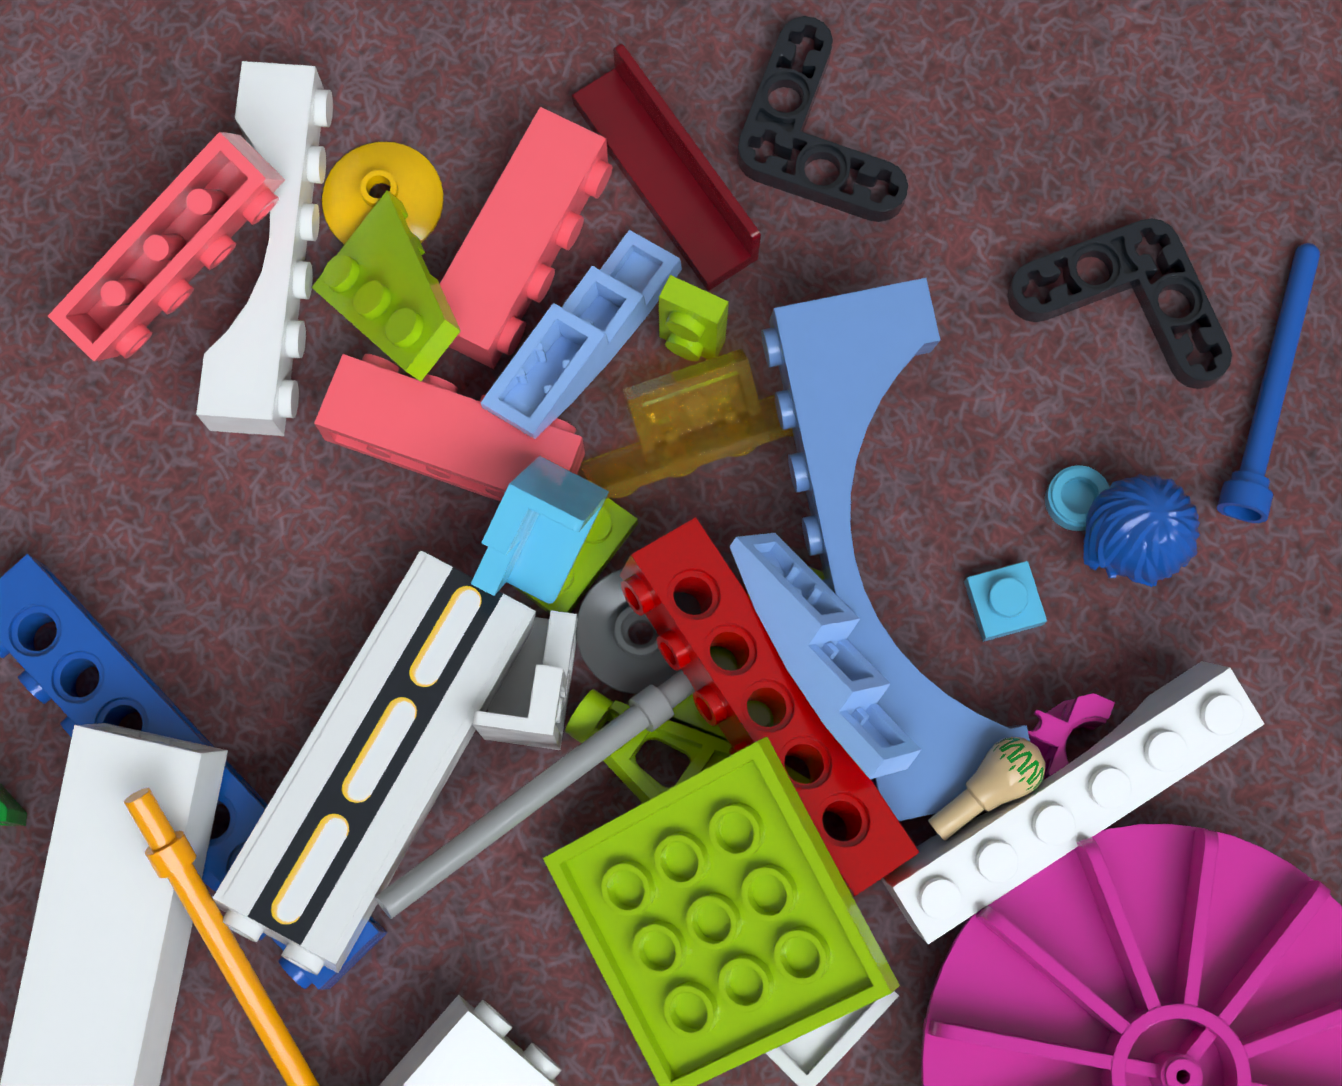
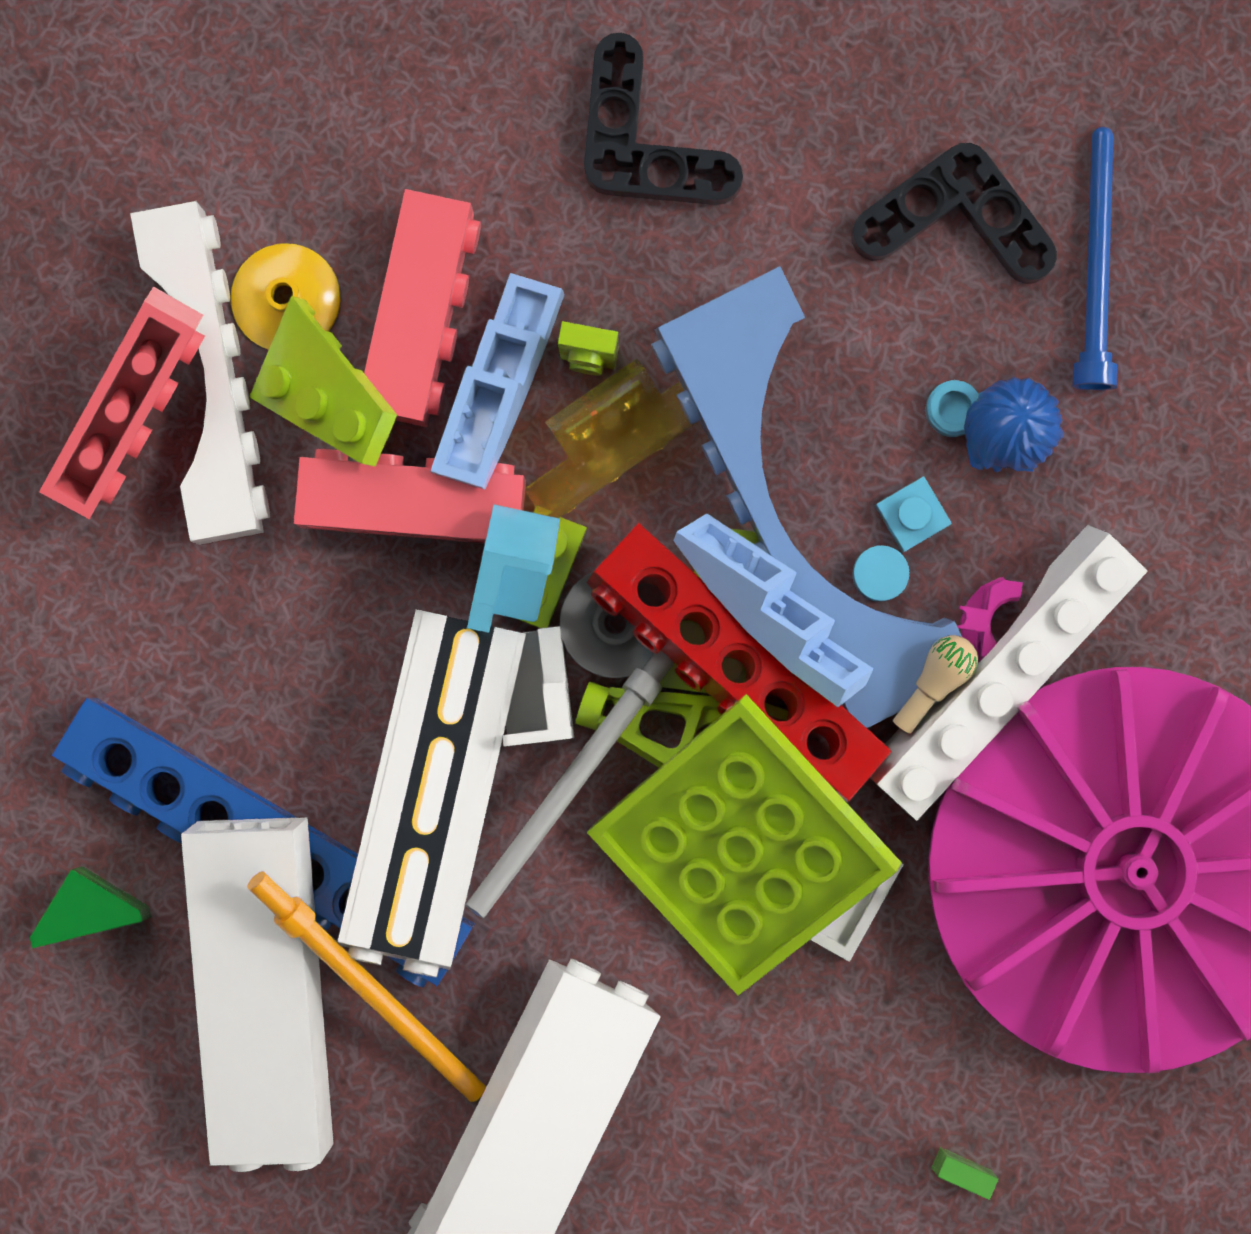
camera: 10 degrees left, 10 degrees up
(669, 171) = (528, 210): dark red panel -> none
(953, 656) = (880, 573): none -> medium azure tile

